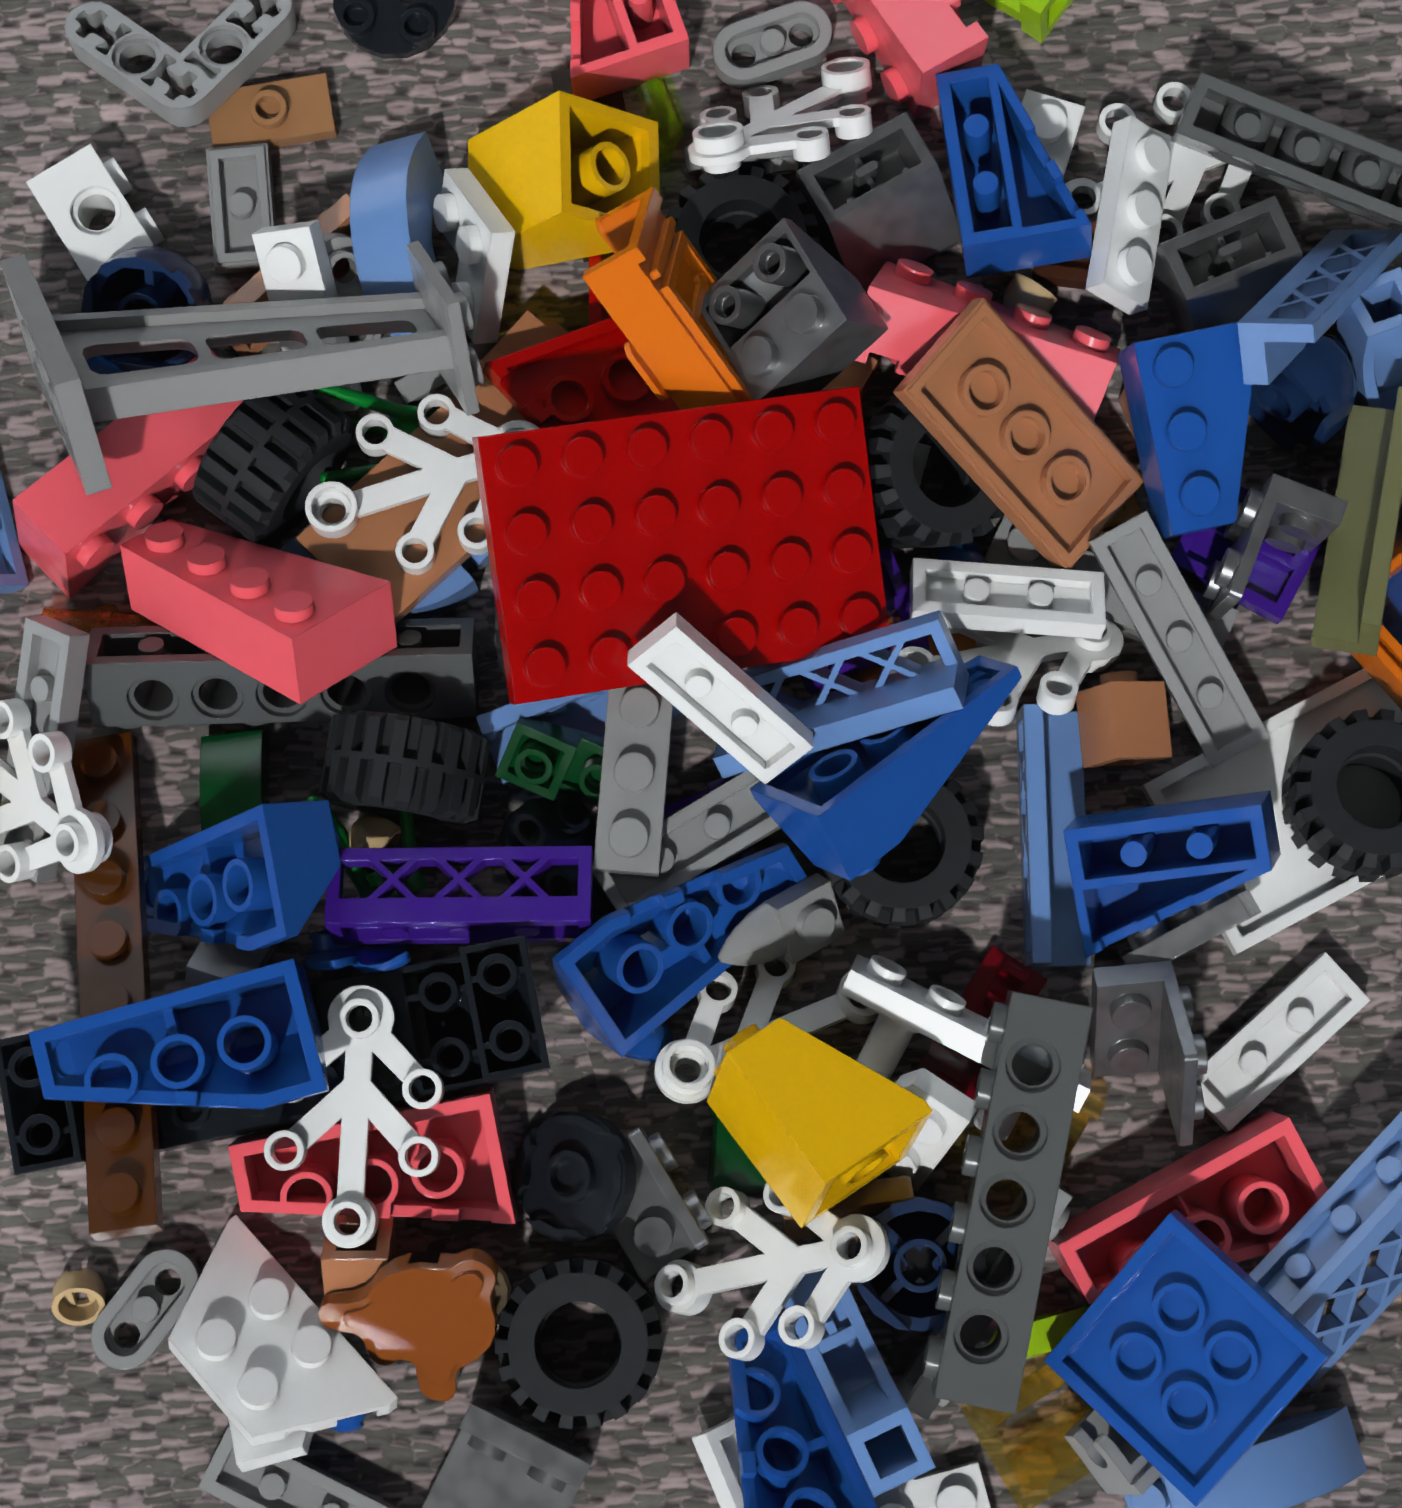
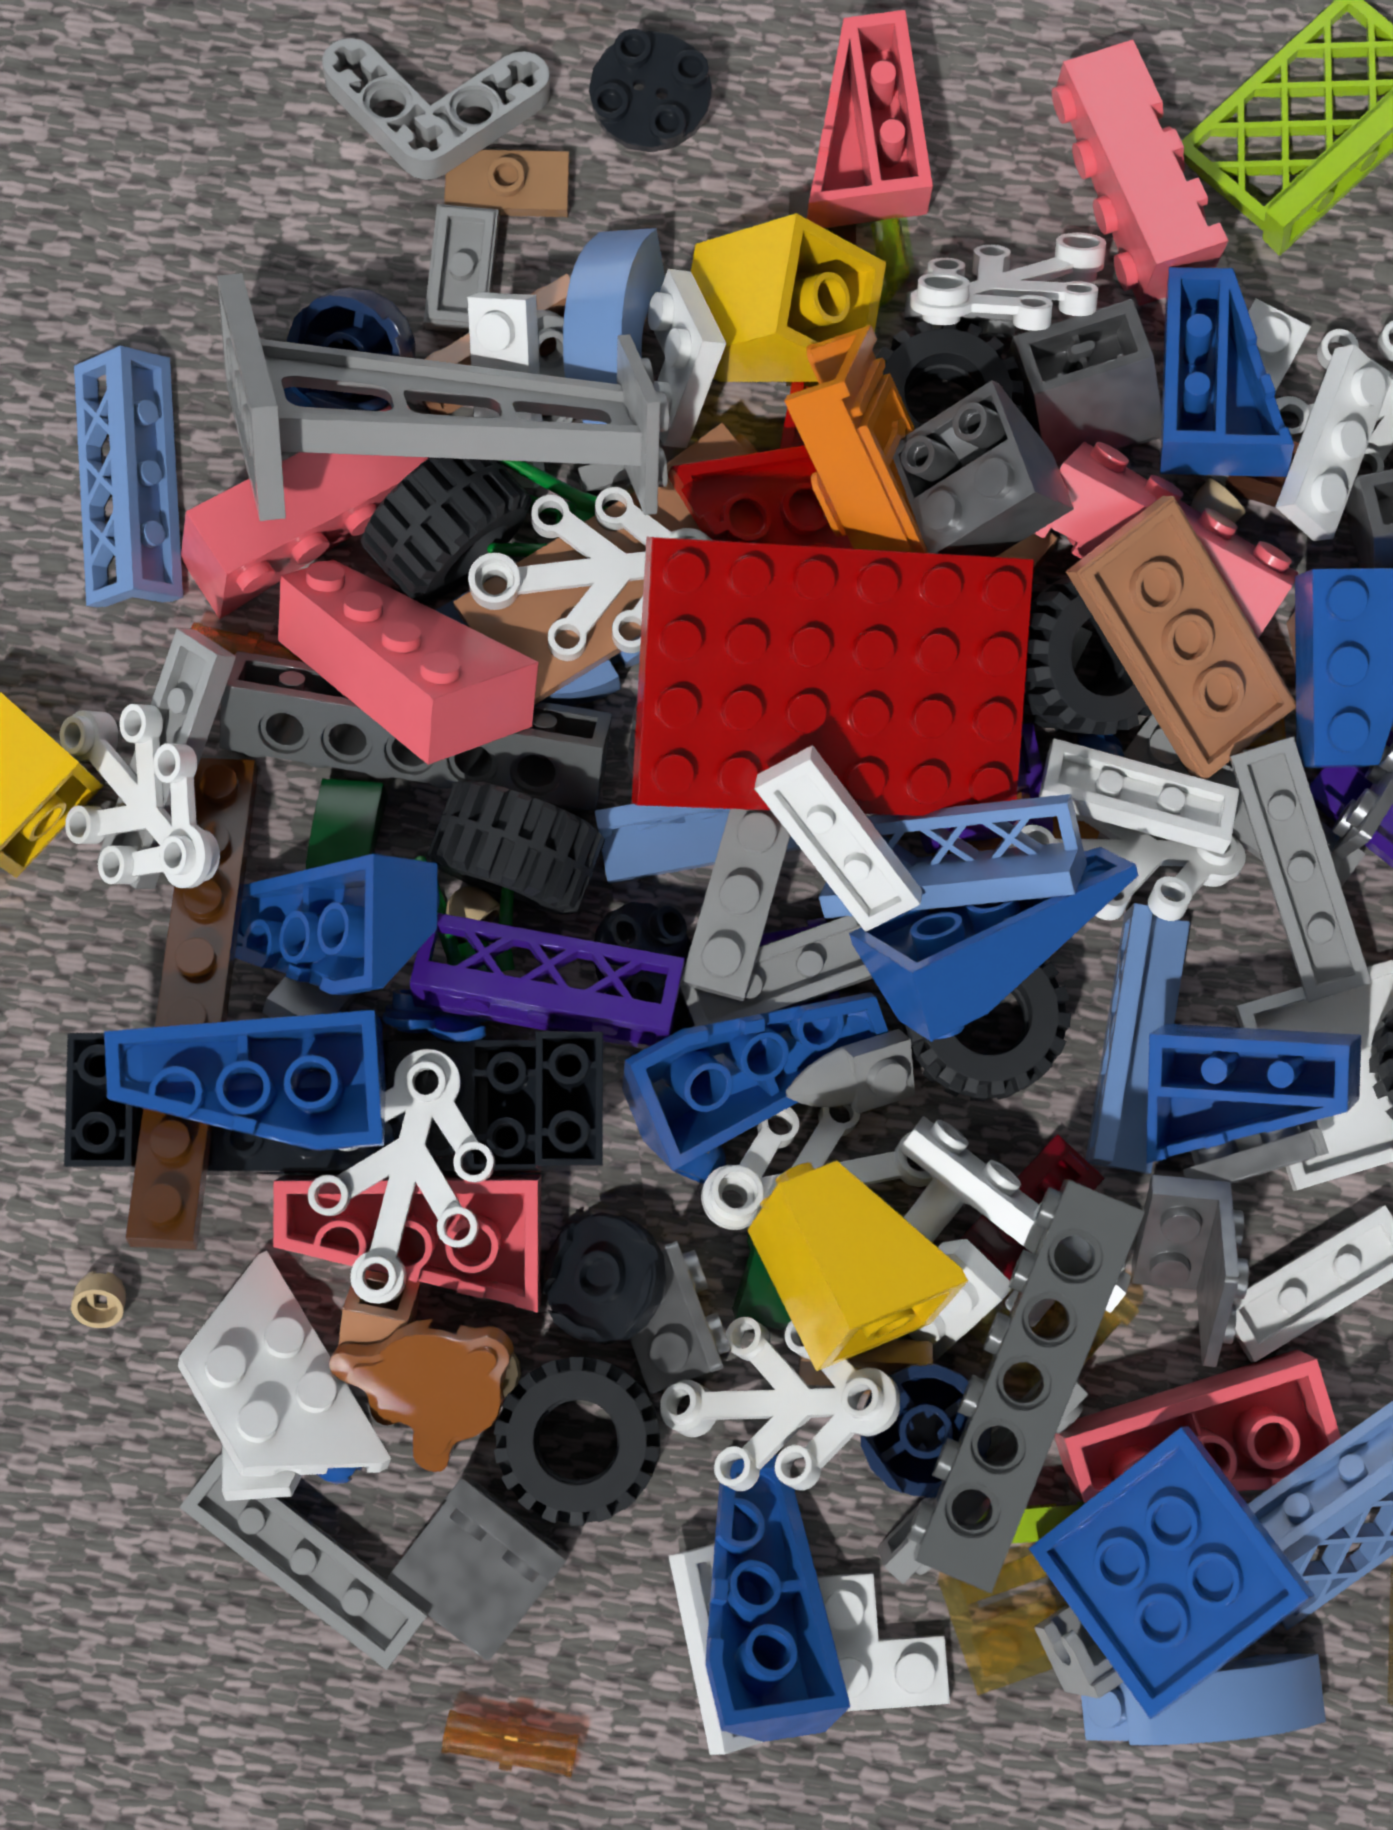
camera: 10 degrees right, 0 degrees up
(77, 192) = (311, 220): white brick -> none
(147, 1307) = (162, 1322): light grey plate -> none
(553, 759) = (663, 868): dark green slope -> none
(768, 41) = (1010, 202): light grey plate -> none
(863, 1395) = (845, 1546): medium blue arch -> none
(1123, 722) = (1229, 940): nougat brick -> none

